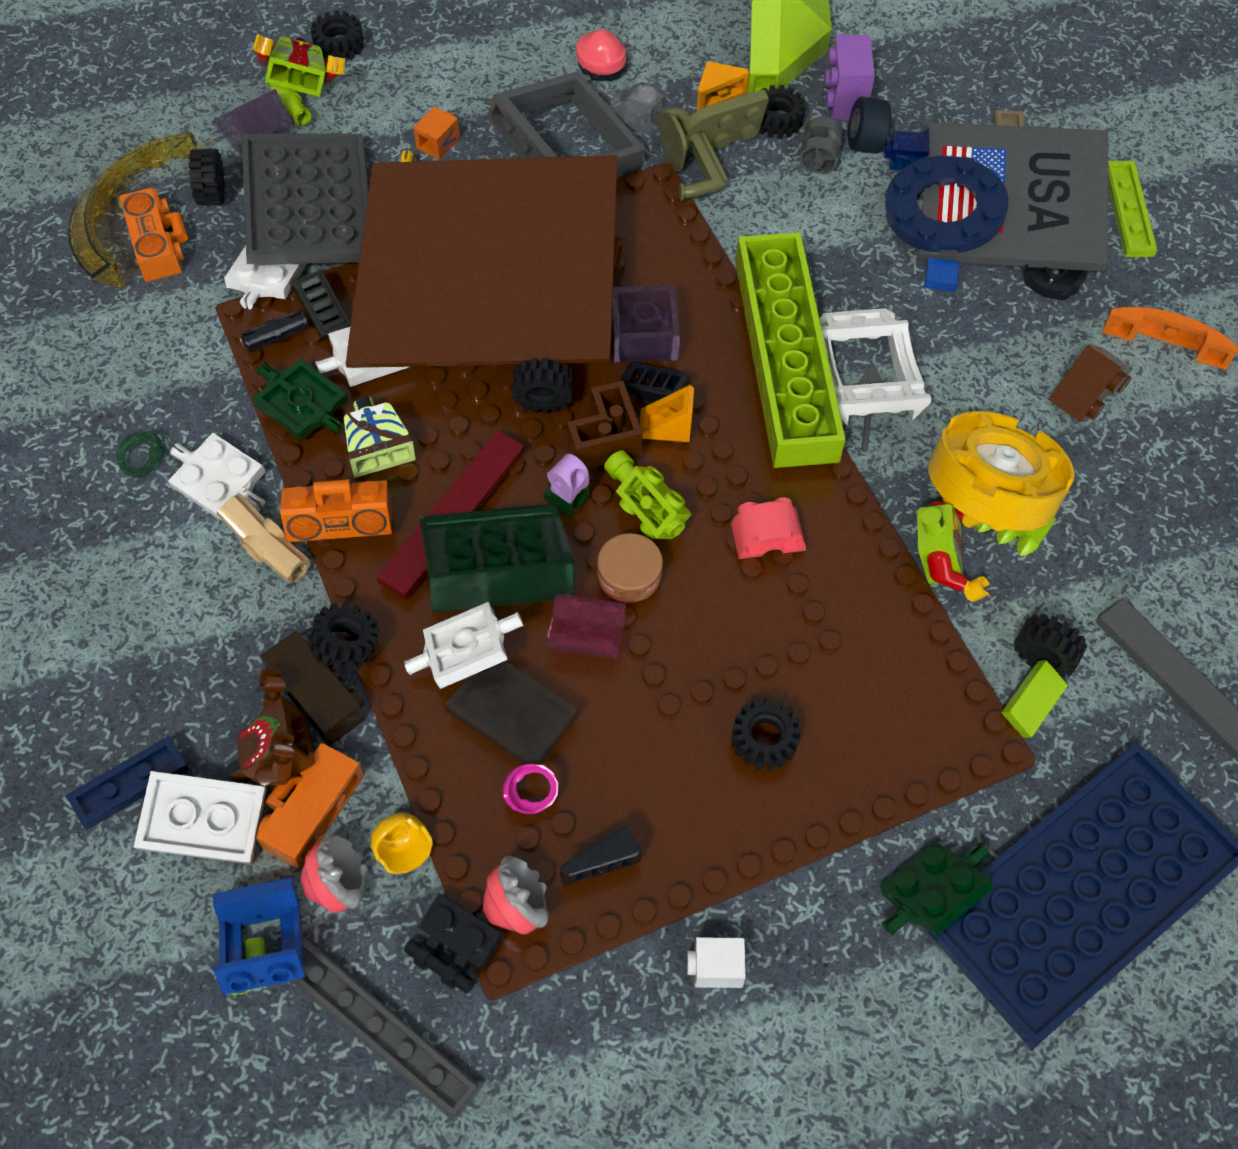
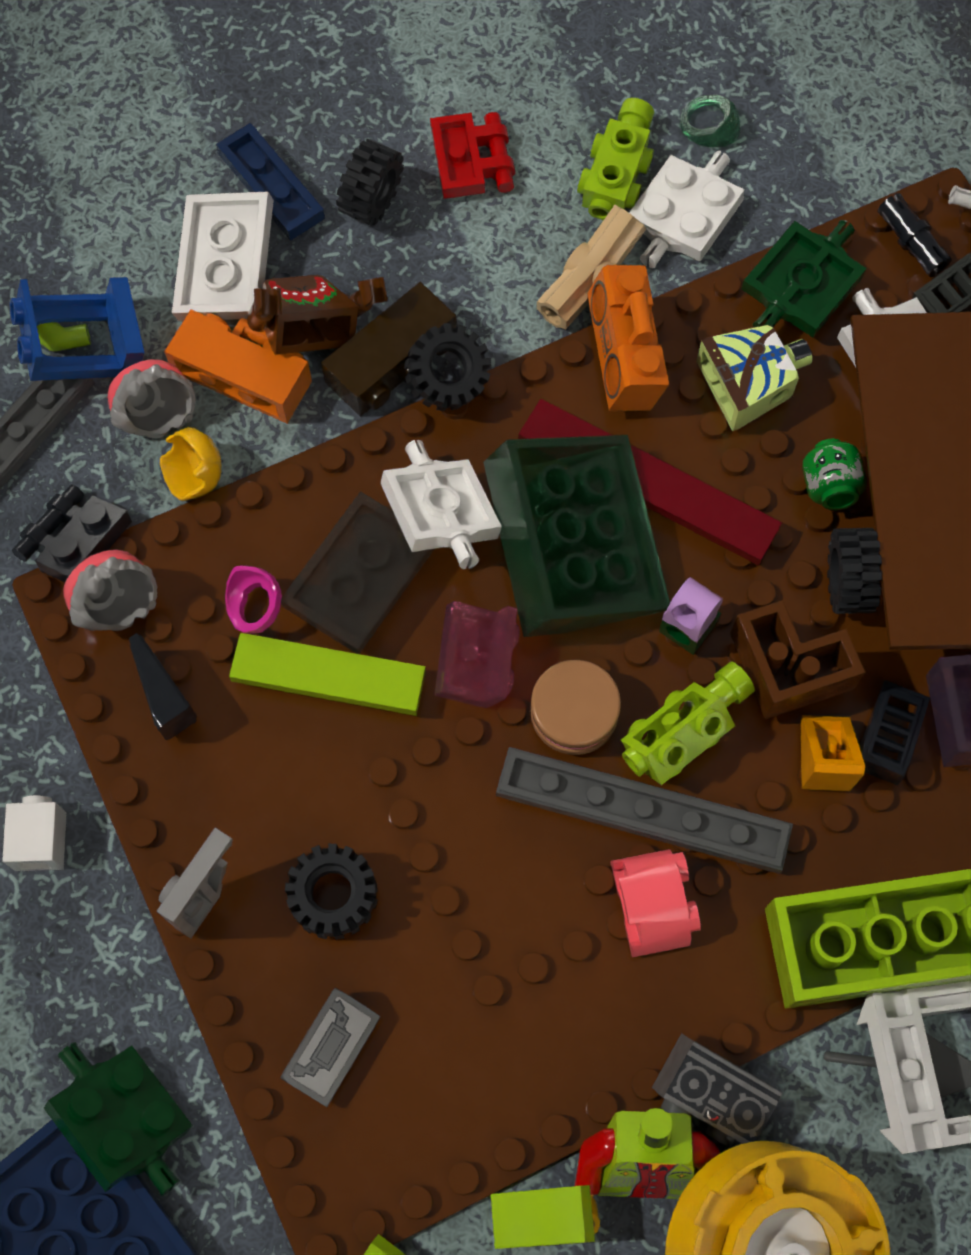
camera: 90 degrees right, 10 degrees up
(134, 632) = (458, 154): none -> red plate
(154, 692) = (370, 182): none -> black tyre
(161, 514) = (620, 156): none -> lime brick
(464, 393) = (834, 474): none -> green head
(592, 739) = (328, 674): none -> lime tile
(703, 537) = (644, 810): none -> dark grey tile
(771, 815) = (192, 896): none -> light grey wing
(877, 740) = (330, 1047): none -> slope
(896, 502) = (716, 1092): none -> brick
(982, 609) = (542, 1217): none -> lime tile

